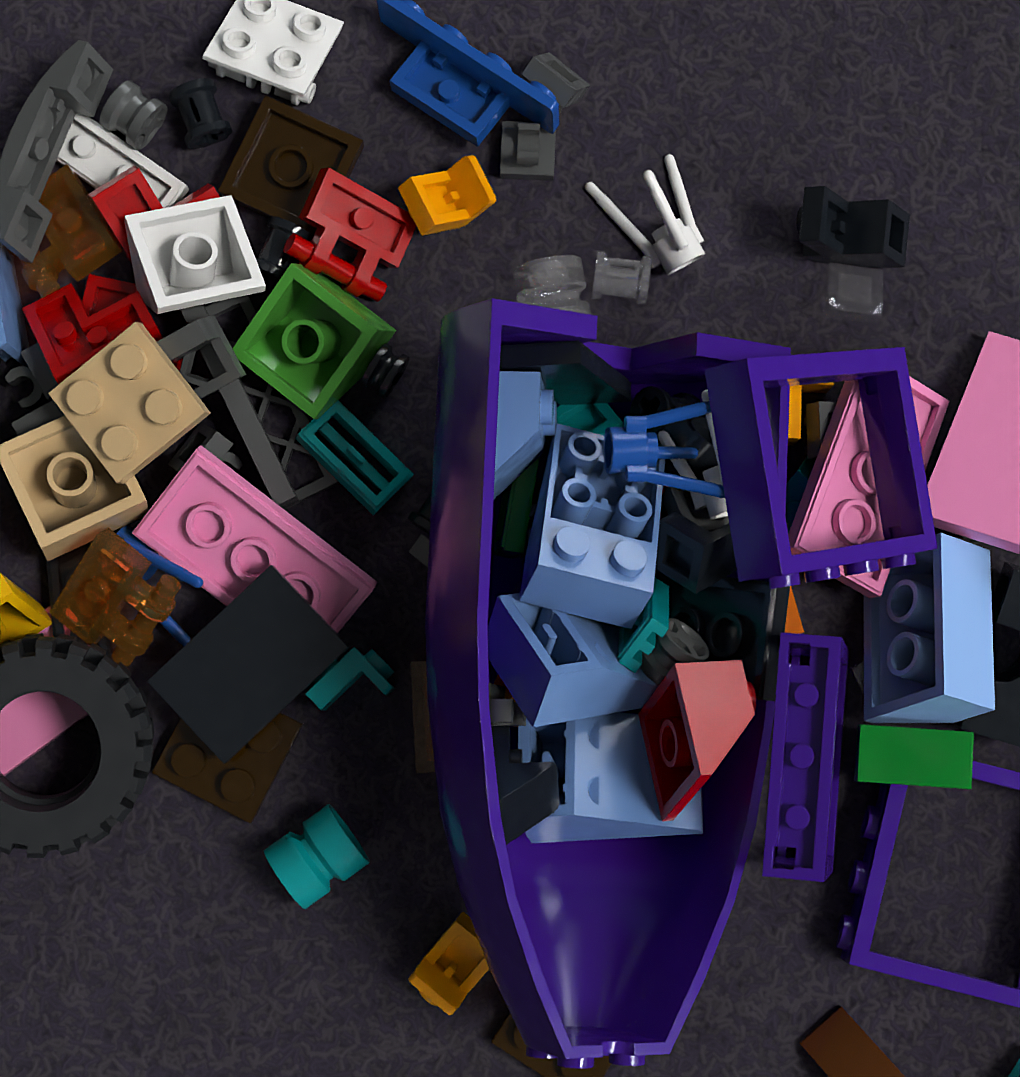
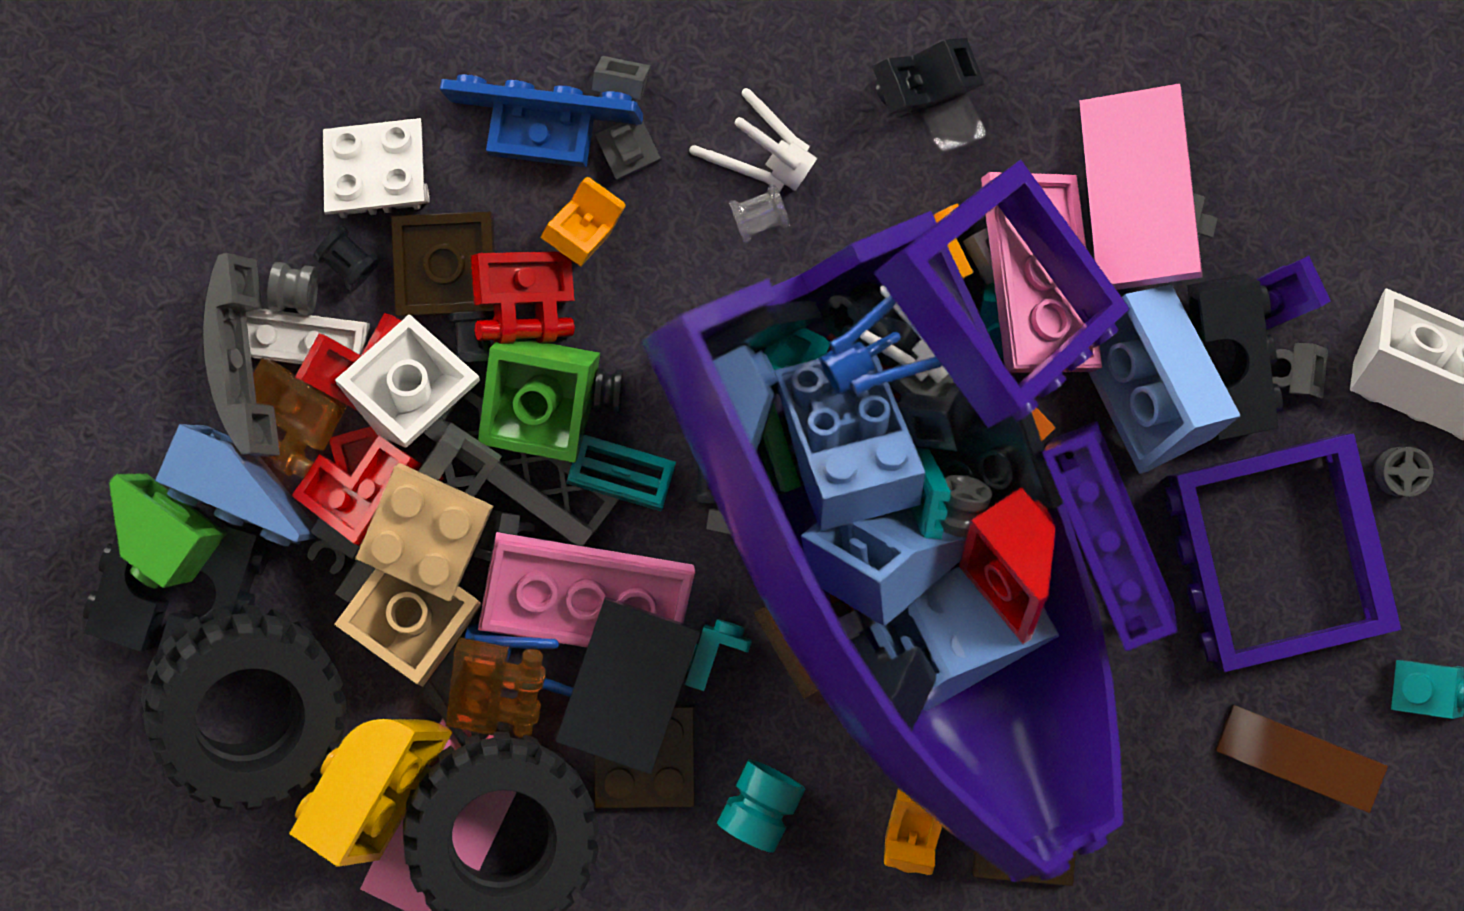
camera: 25 degrees left, 5 degrees up
(552, 283) = (714, 262): clear wheel -> none
(914, 756) = (1193, 482): green tile -> none

